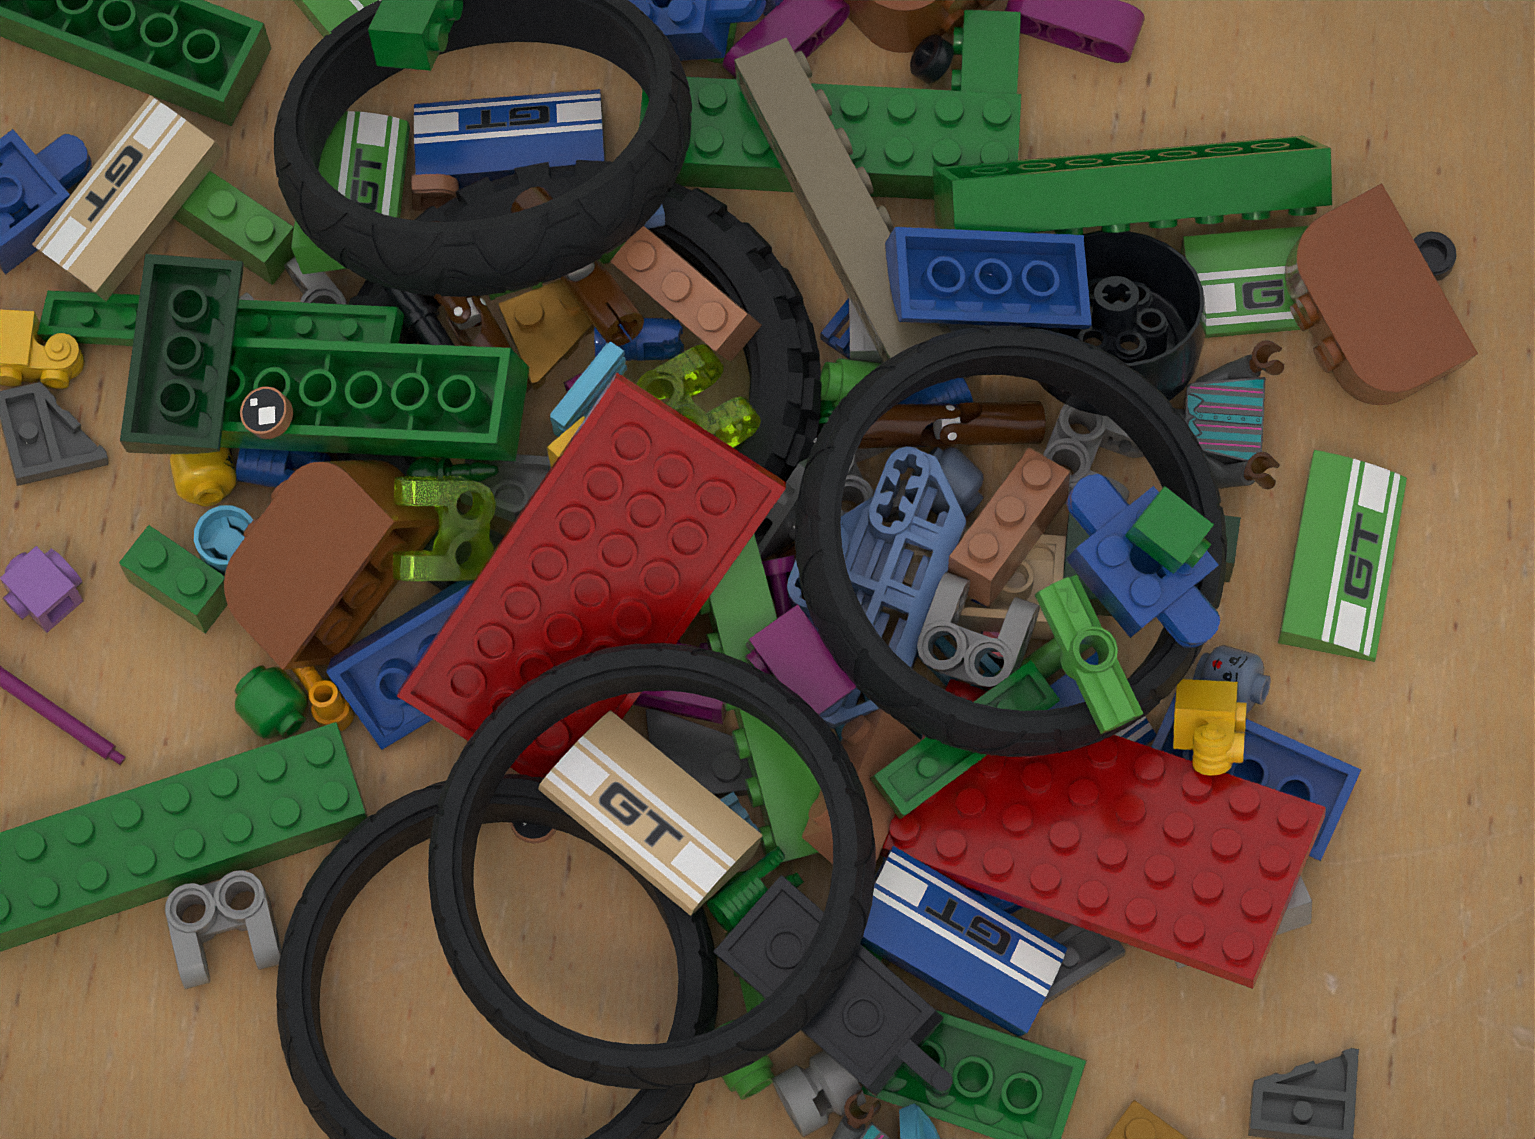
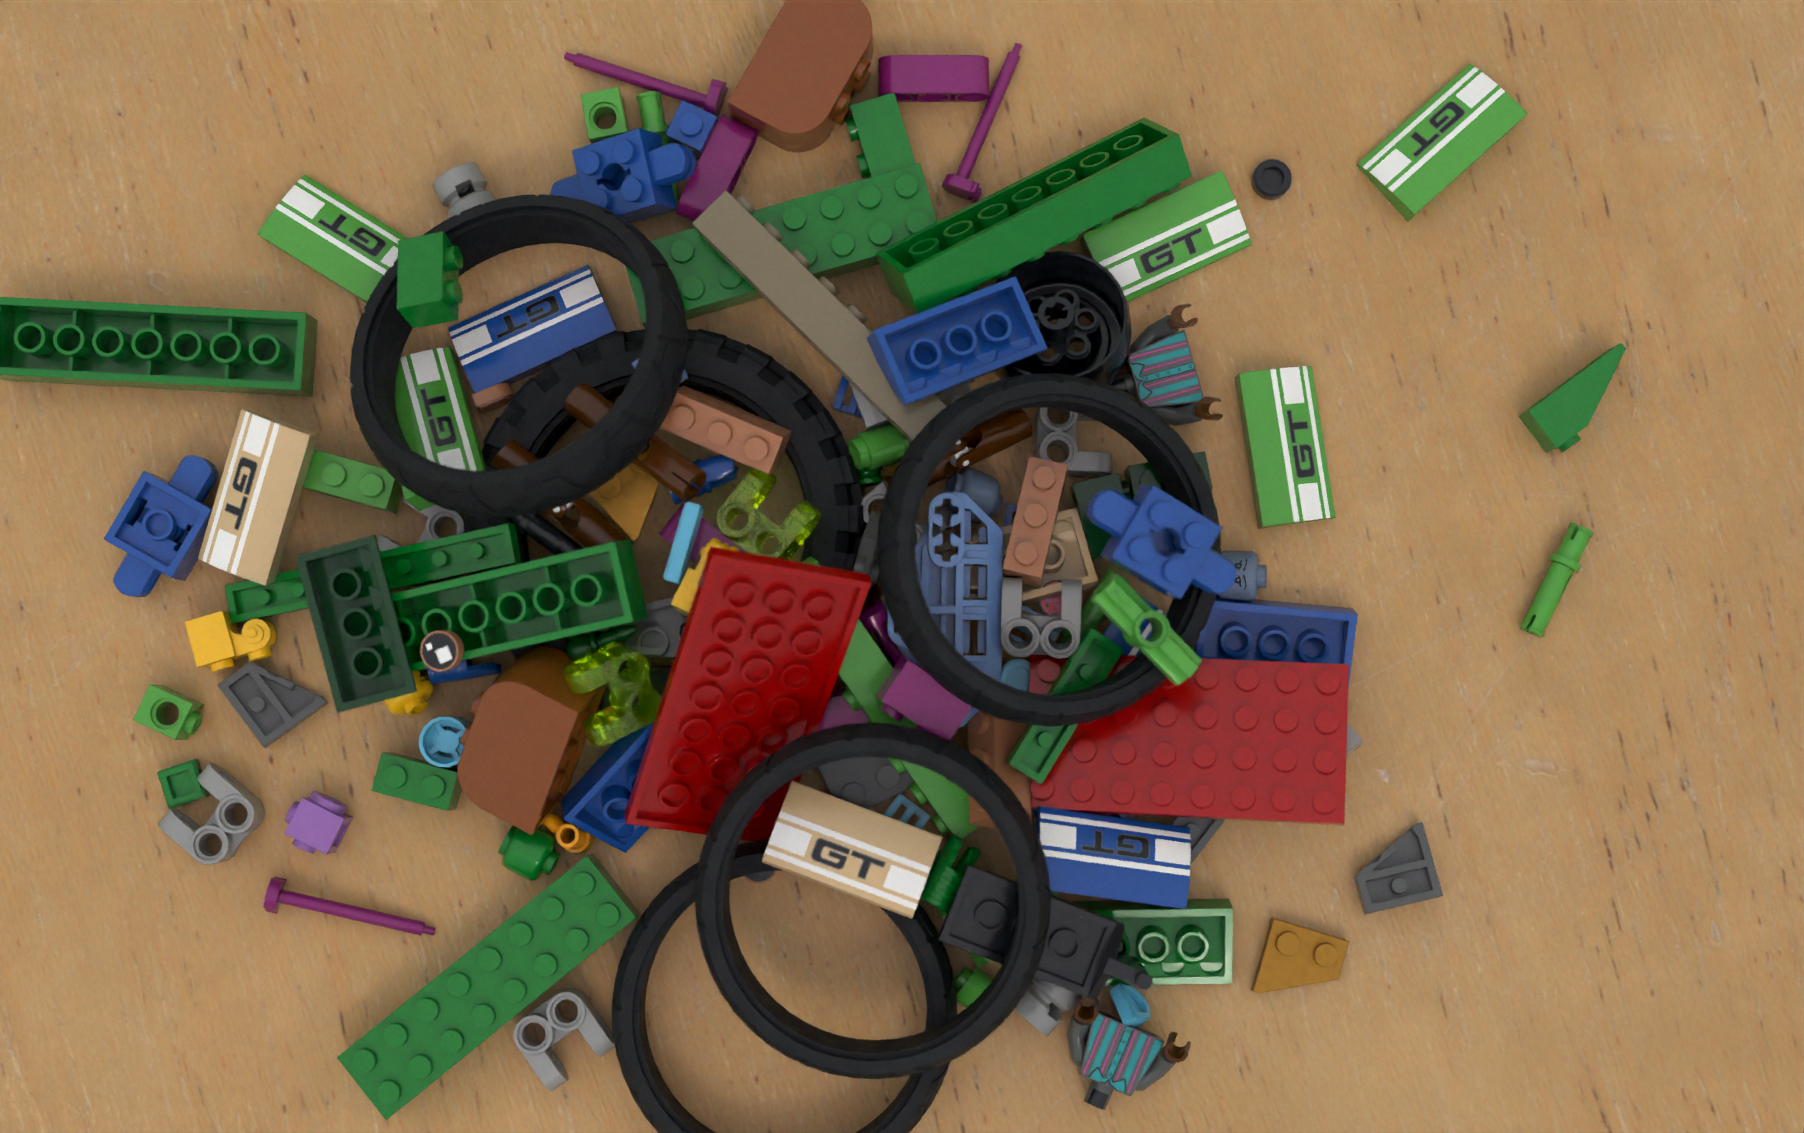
camera: 25 degrees left, 15 degrees up
(931, 58) = (837, 151): black tile -> none
(1062, 139) = (960, 184): none -> magenta piece
(1171, 531) = (1182, 523): green brick -> none
(1210, 724) = (1238, 624): yellow brick -> none
(1373, 302) = (1247, 243): dark orange brick -> none

